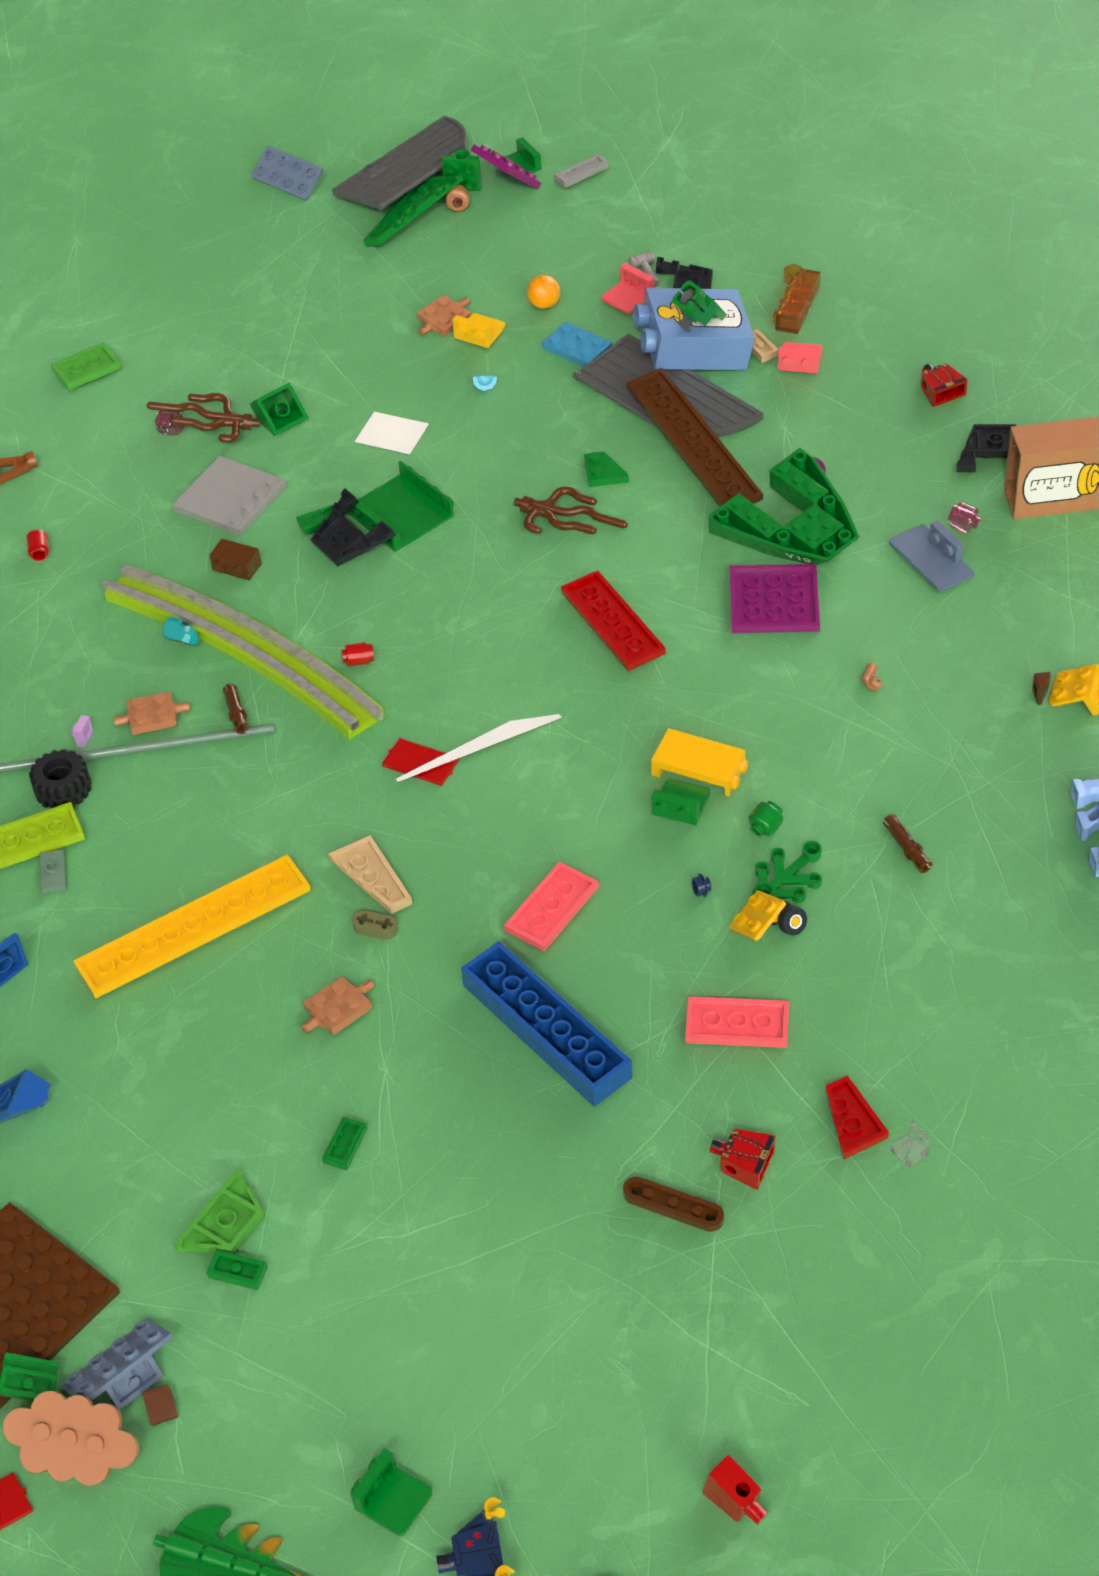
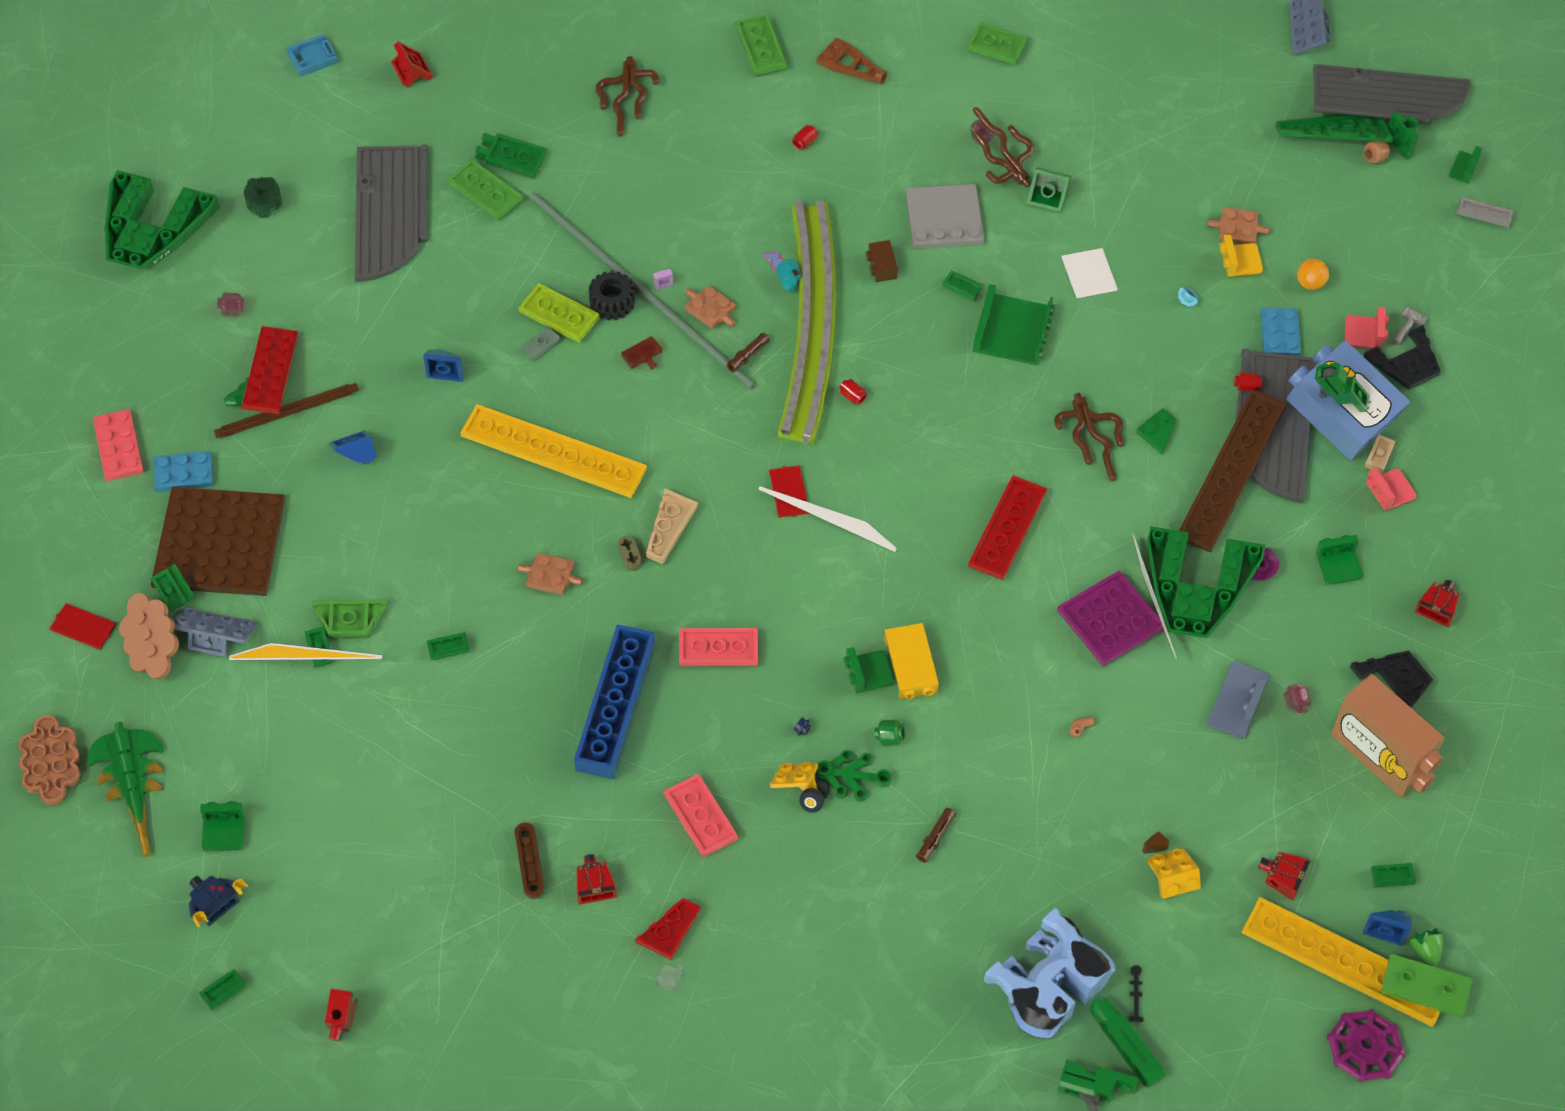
camera: 50 degrees right, 10 degrees up
(142, 638) = (775, 259): none -> medium blue sticker
(151, 792) = (642, 353): none -> clear red plate
(160, 1405) = (204, 668): reddish brown slope -> none
(212, 1309) = (289, 652): none -> yellow sticker
(343, 540) = (952, 307): black wing -> none
(506, 165) = (1433, 159): magenta plate -> none
(613, 383) = (1247, 381): none -> red brick
(758, 552) = (1145, 575): none -> white sticker
(797, 298) = (1457, 448): clear orange hinge -> none
(844, 423) = (1339, 559): none -> green bracket

